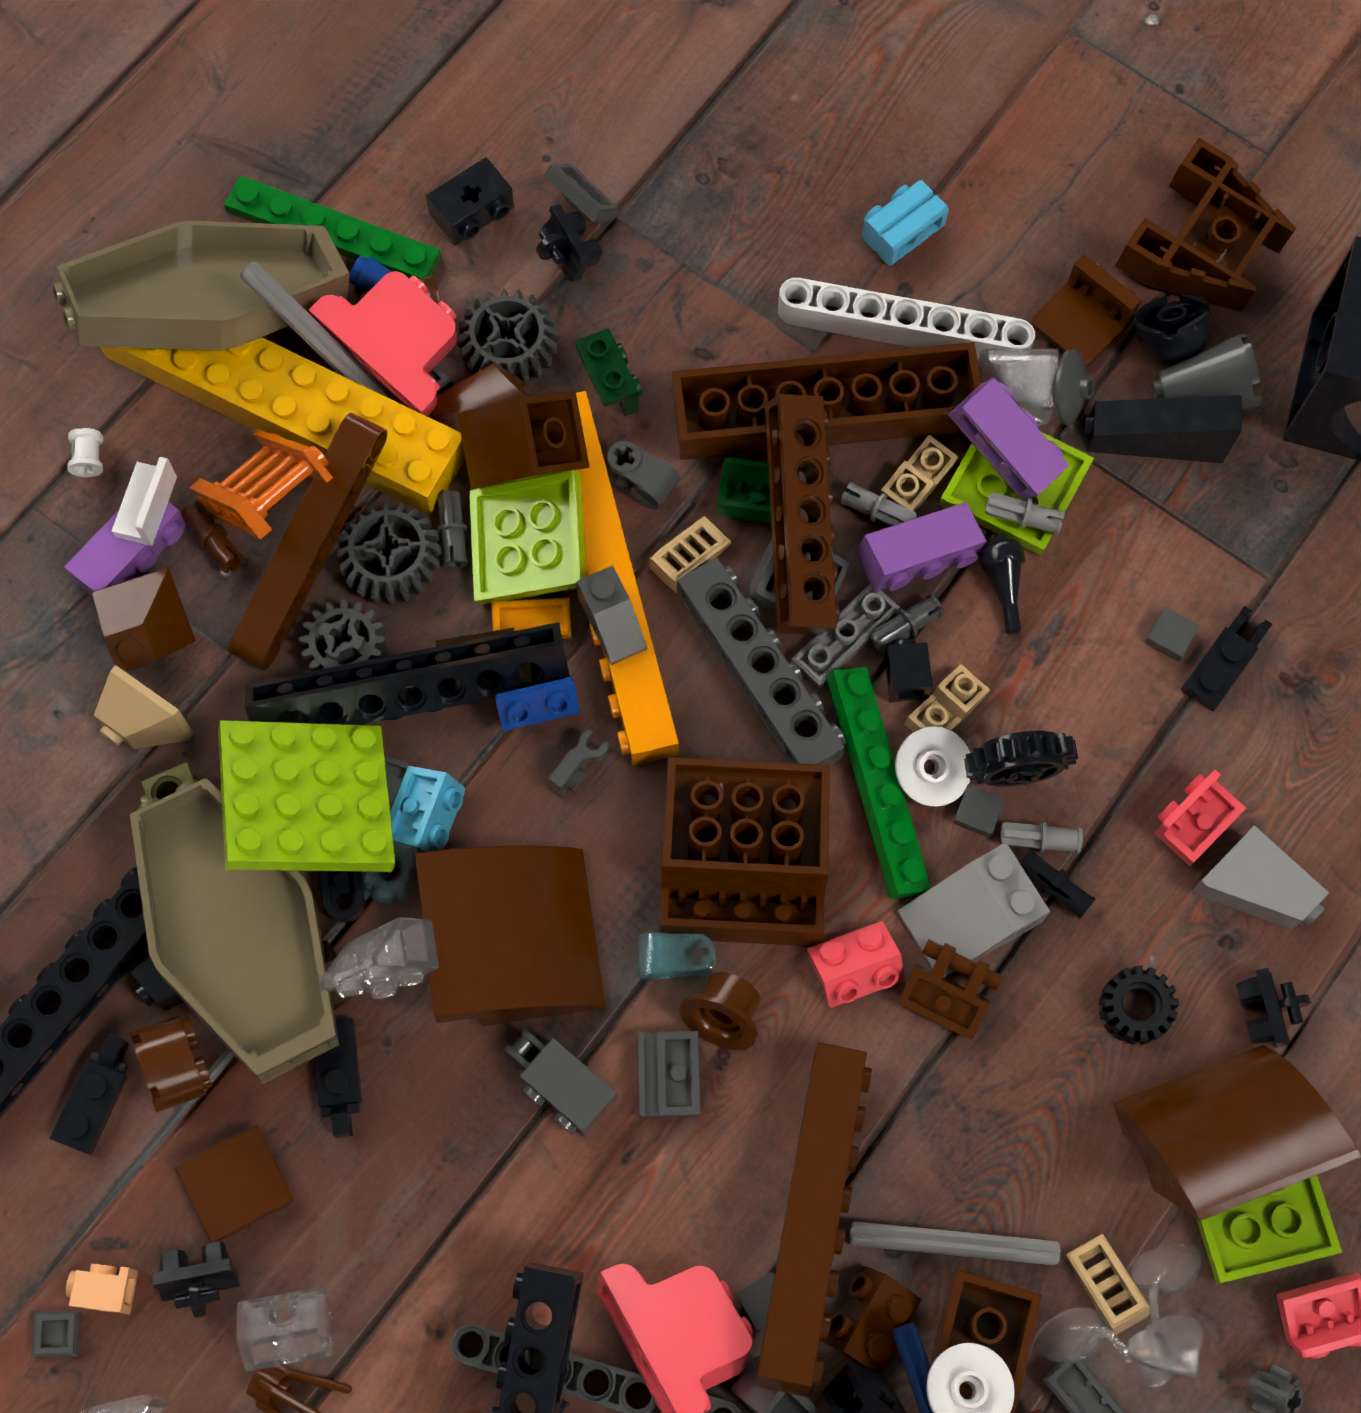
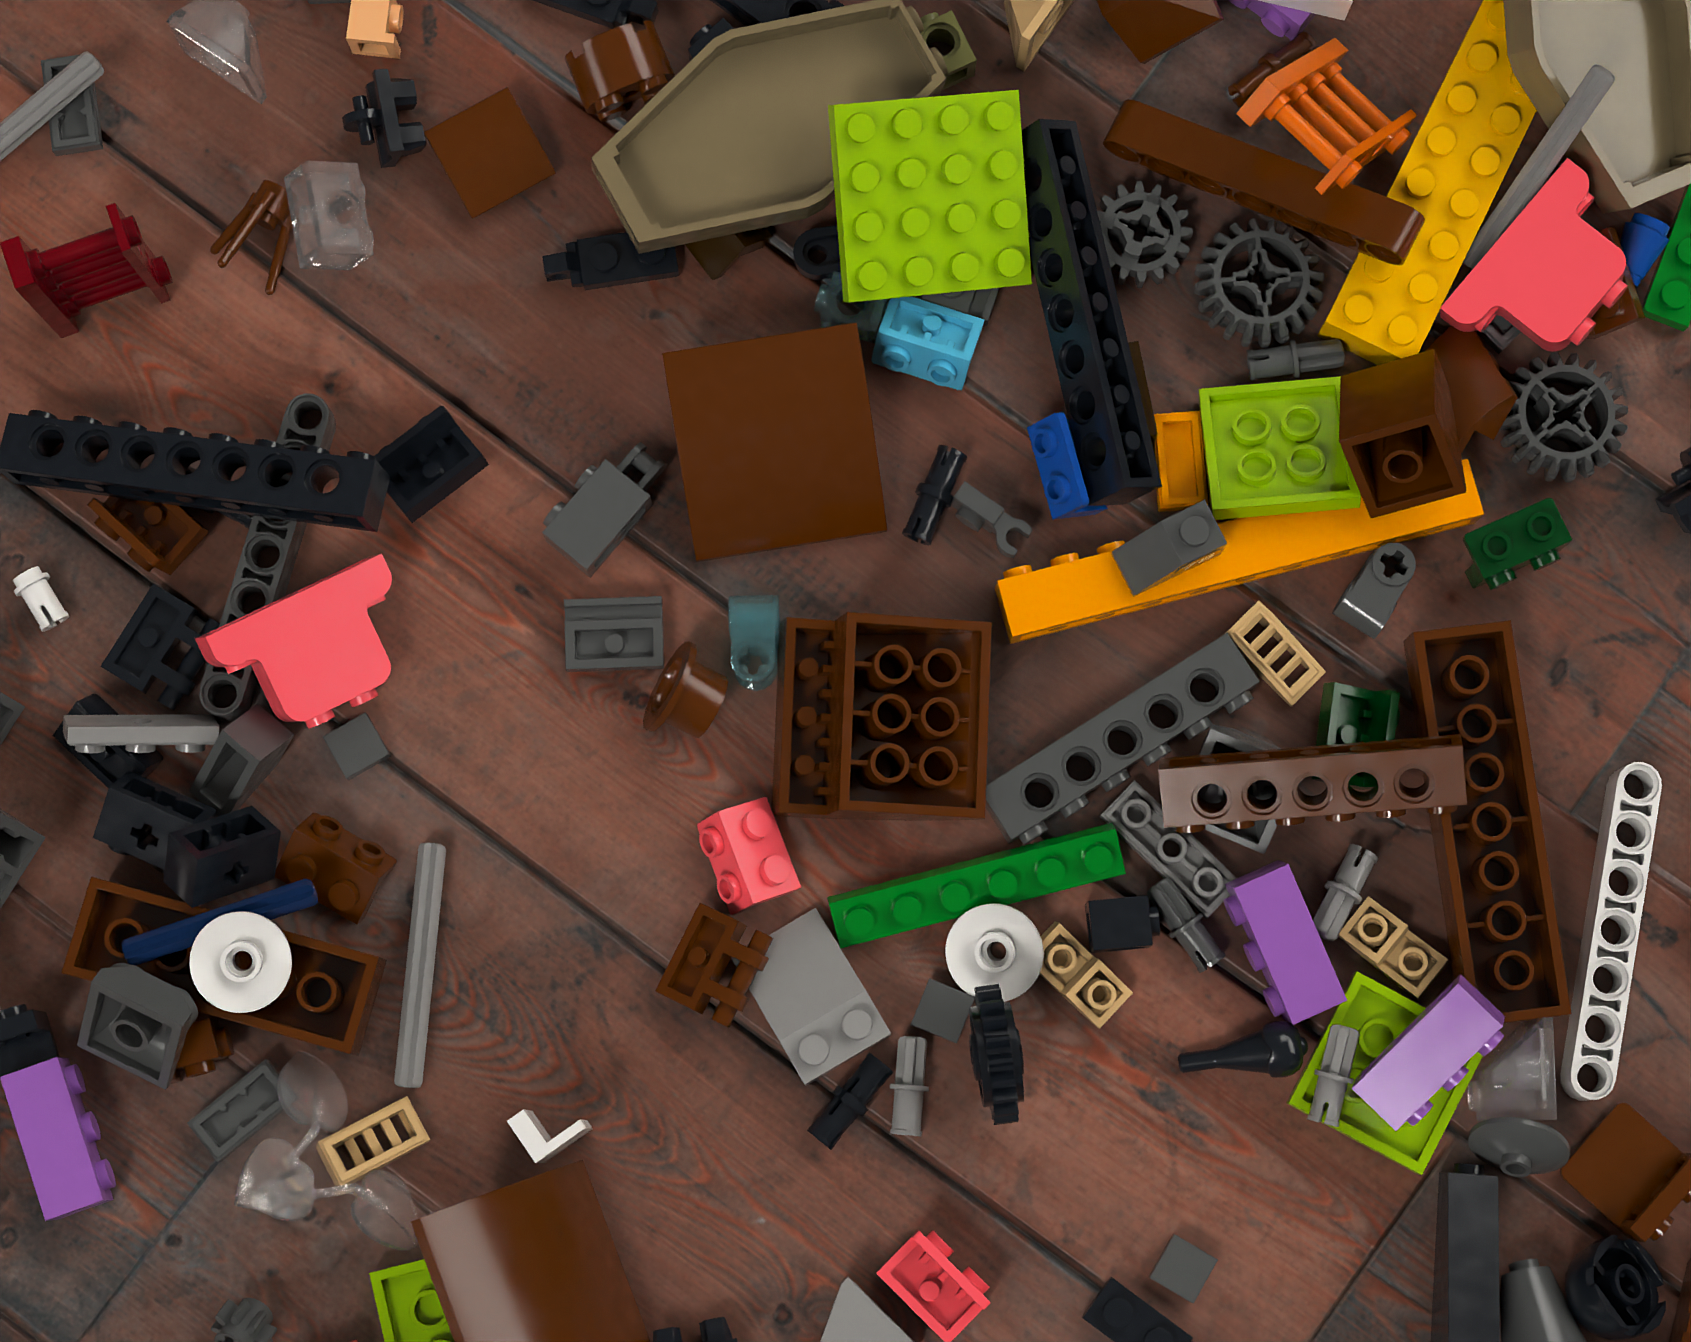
camera: 90 degrees right, 10 degrees up
(384, 959) = (727, 290): clear slope -> none
(515, 1234) = (429, 463): none -> black bracket
(554, 809) = (934, 495): none -> black pin
(811, 1222) = (441, 792): reddish brown brick -> none
(1107, 1118) = (538, 1141): none -> white panel
(1160, 994) = (668, 1189): black tyre -> none

